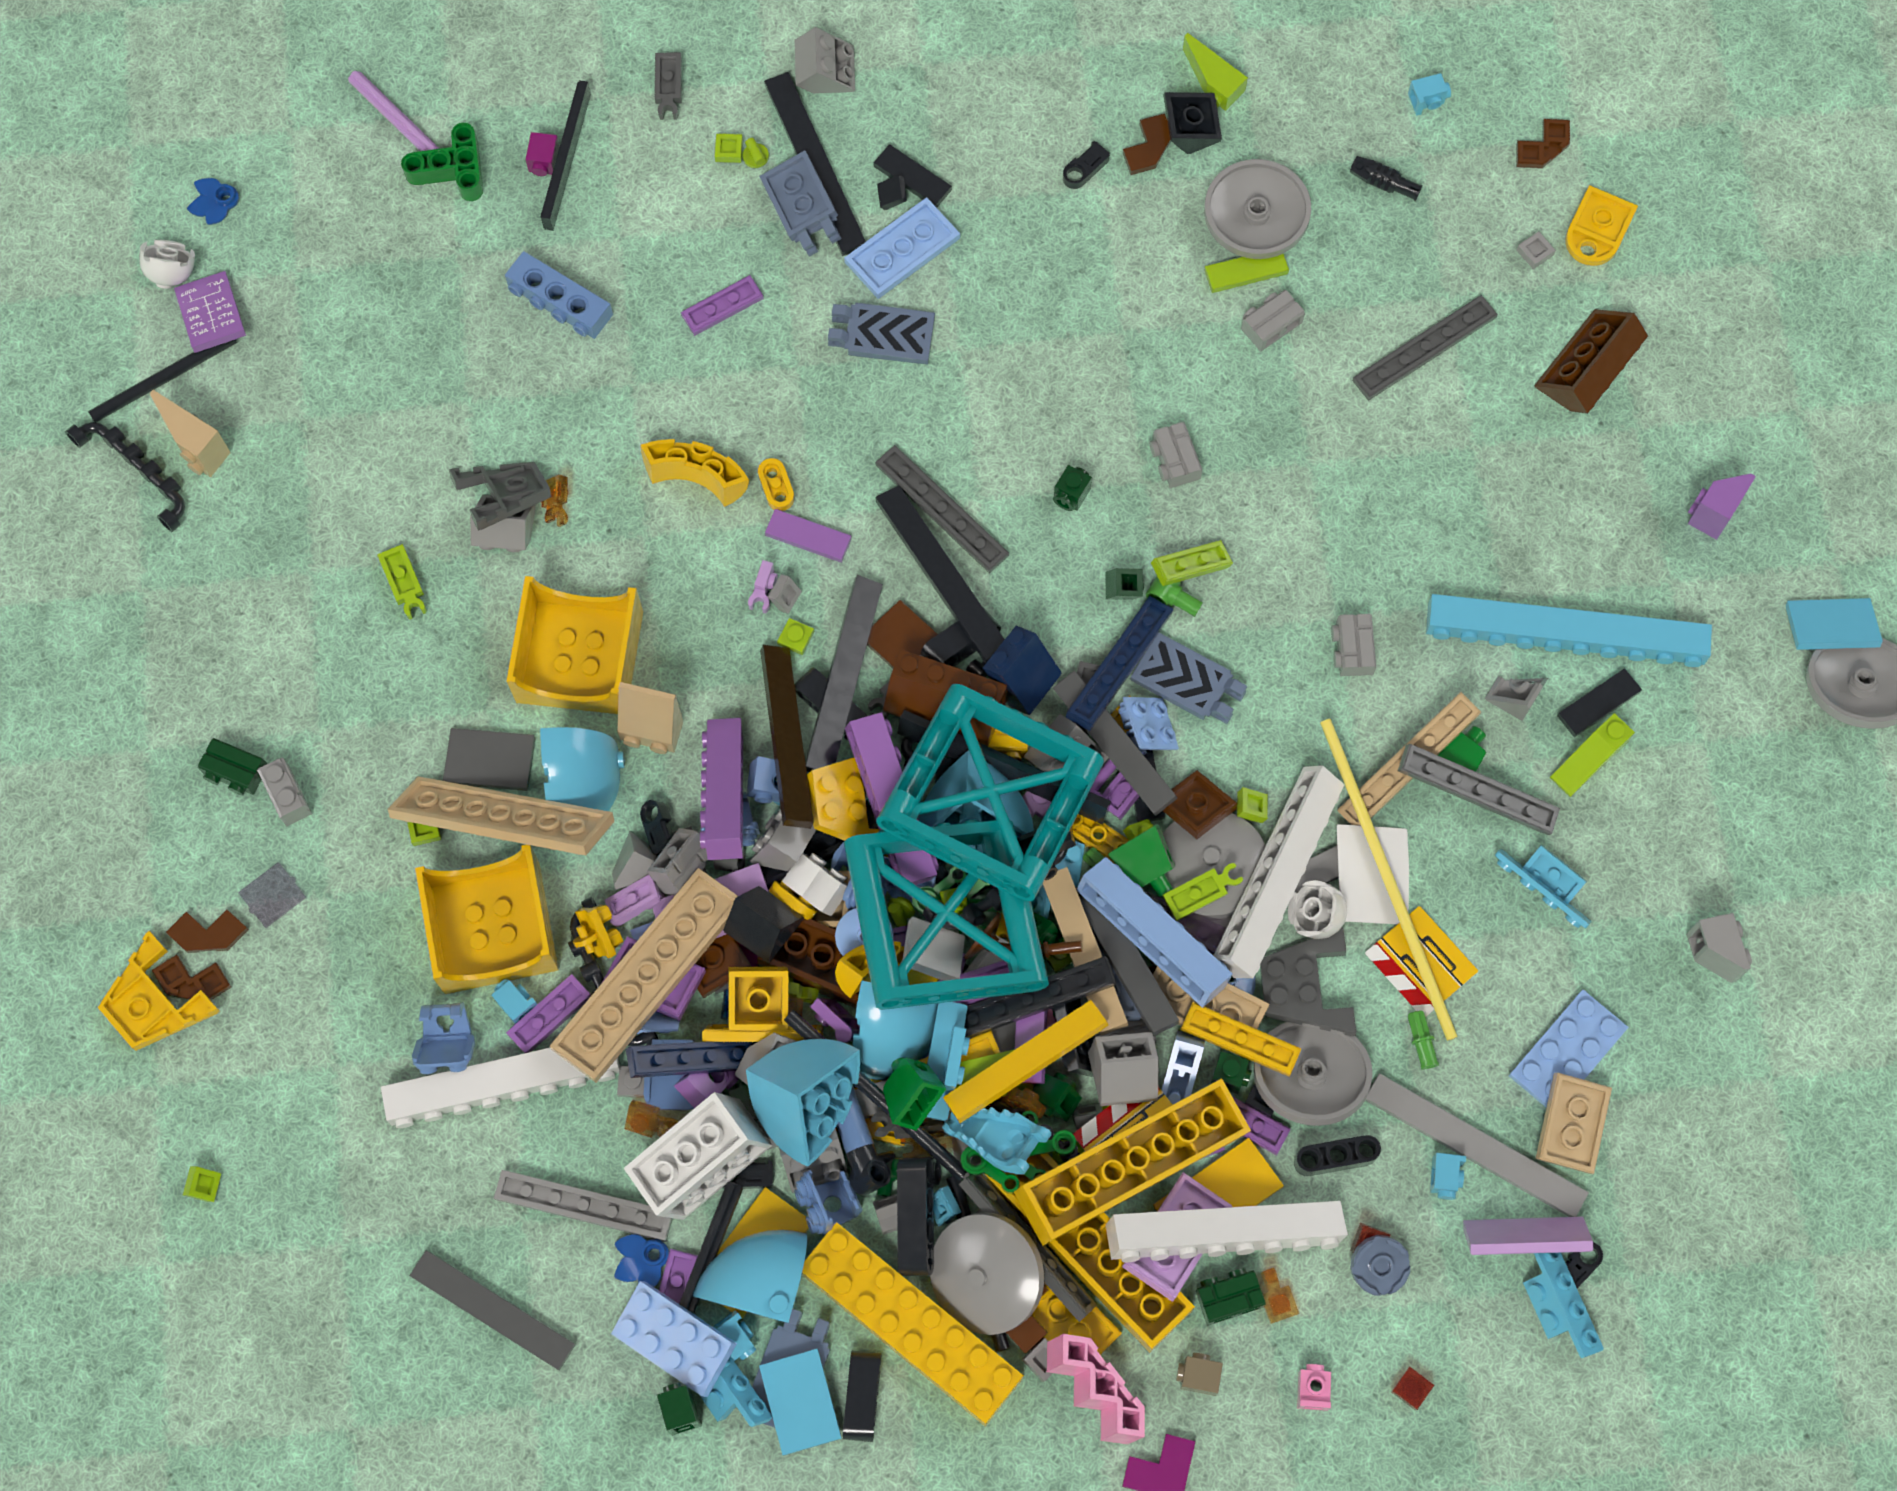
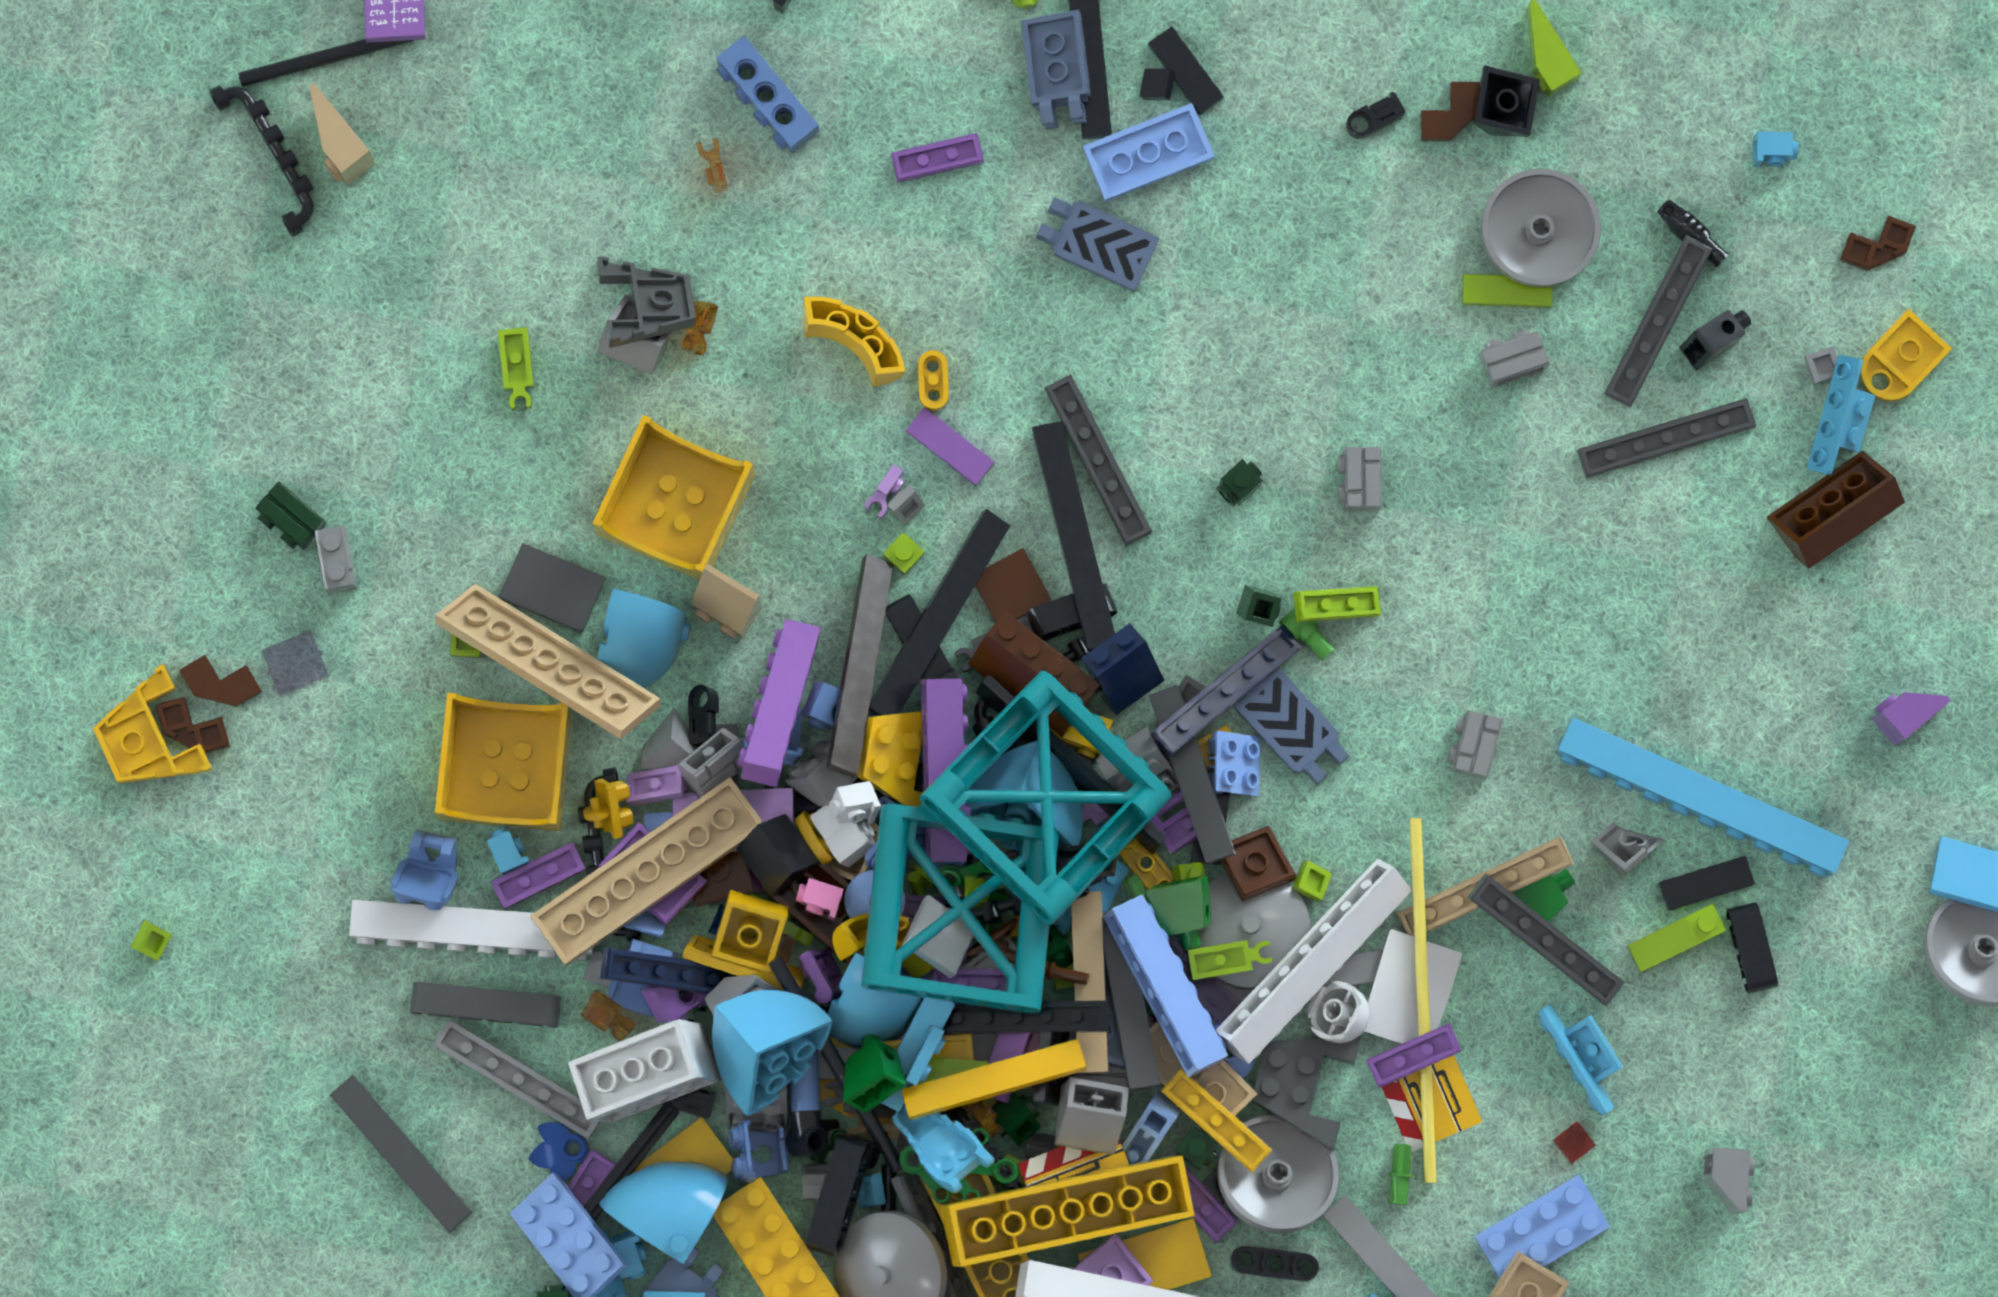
camera: 10 degrees right, 10 degrees up
(531, 1145) = (485, 1004): none -> dark grey beam
(532, 369) = (714, 174): none -> clear orange plate
(813, 947) = (820, 897): none -> bright pink brick
(819, 852) = (855, 803): none -> white brick
(1383, 254) = (1658, 321): none -> dark grey tile
(1398, 927) = (1414, 1055): none -> medium lavender tile
(1442, 245) = (1715, 338): none -> black torso
(1568, 283) = (1843, 416): none -> medium azure bracket
(1568, 962) = (1574, 1142): none -> clear red plate
(1662, 743) = (1753, 947): none -> black beam

